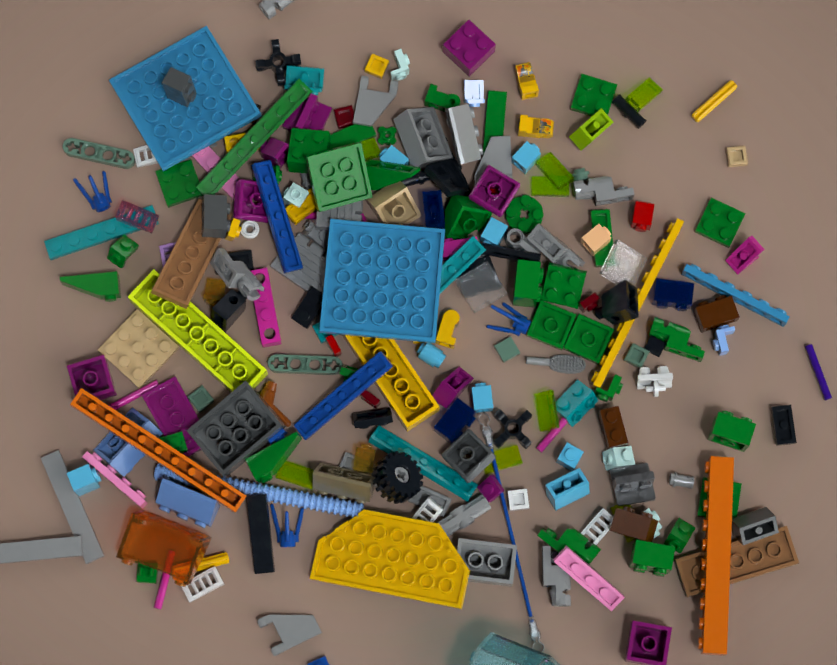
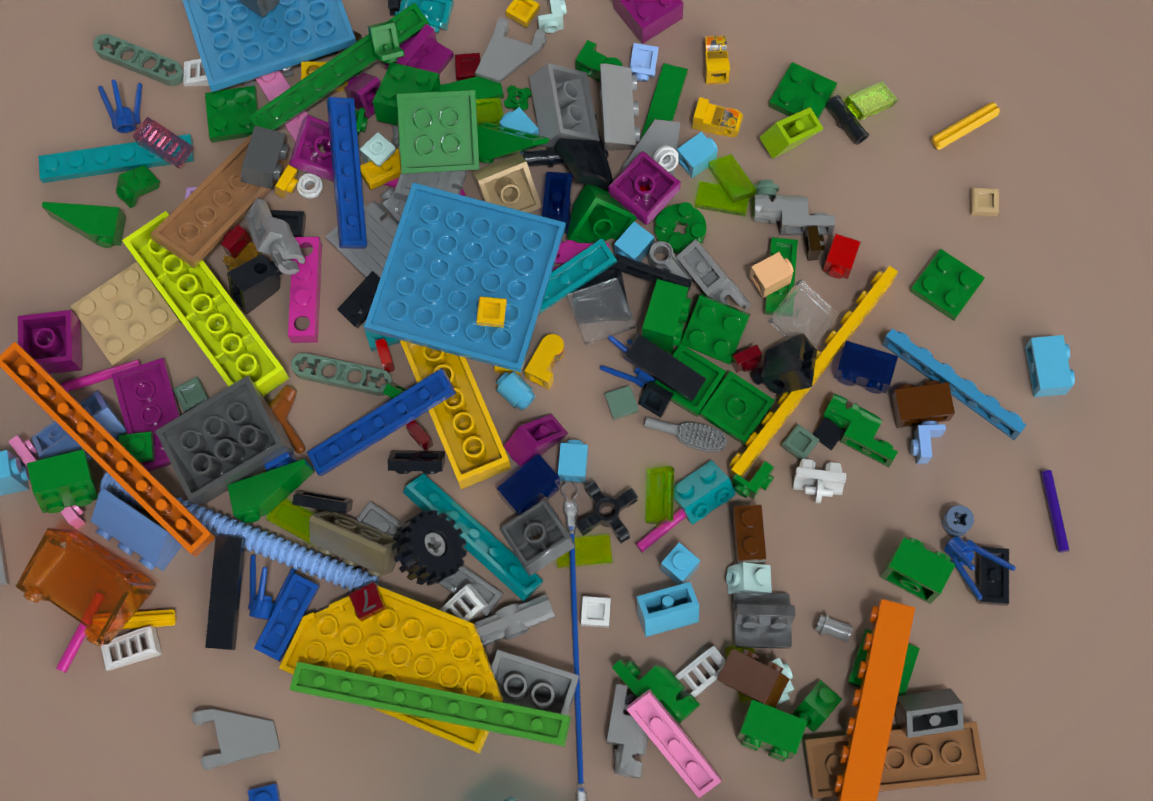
camera: 15 degrees right, 5 degrees down
(133, 479) = (62, 481): none -> green brick
(146, 574) = (57, 620): green tile -> none
(208, 282) = (235, 241): none -> dark red plate
(285, 114) = (385, 42): none -> green bracket
(306, 543) = (286, 617): none -> blue plate
(313, 458) = (322, 502): none -> black tile
(362, 522) = (367, 601): none -> dark red tile
(364, 458) = (392, 513): clear yellow bracket -> none
(407, 304) = (491, 312): none -> yellow tile
(422, 582) = (431, 704): none -> bright green plate
(490, 488) = (560, 589): magenta plate -> none
(505, 165) = (671, 160): none -> white plate
(531, 343) = (656, 399): none -> black tile
(533, 321) = (664, 368): none -> black tile
(621, 209) = (813, 242): none -> dark brown plate
(745, 255) = (976, 331): dark pink slope -> none
(751, 394) = (954, 526): none -> sand blue wheel
(759, 415) = (962, 554): none -> blue plant
(799, 270) = (1049, 366): none -> medium azure brick

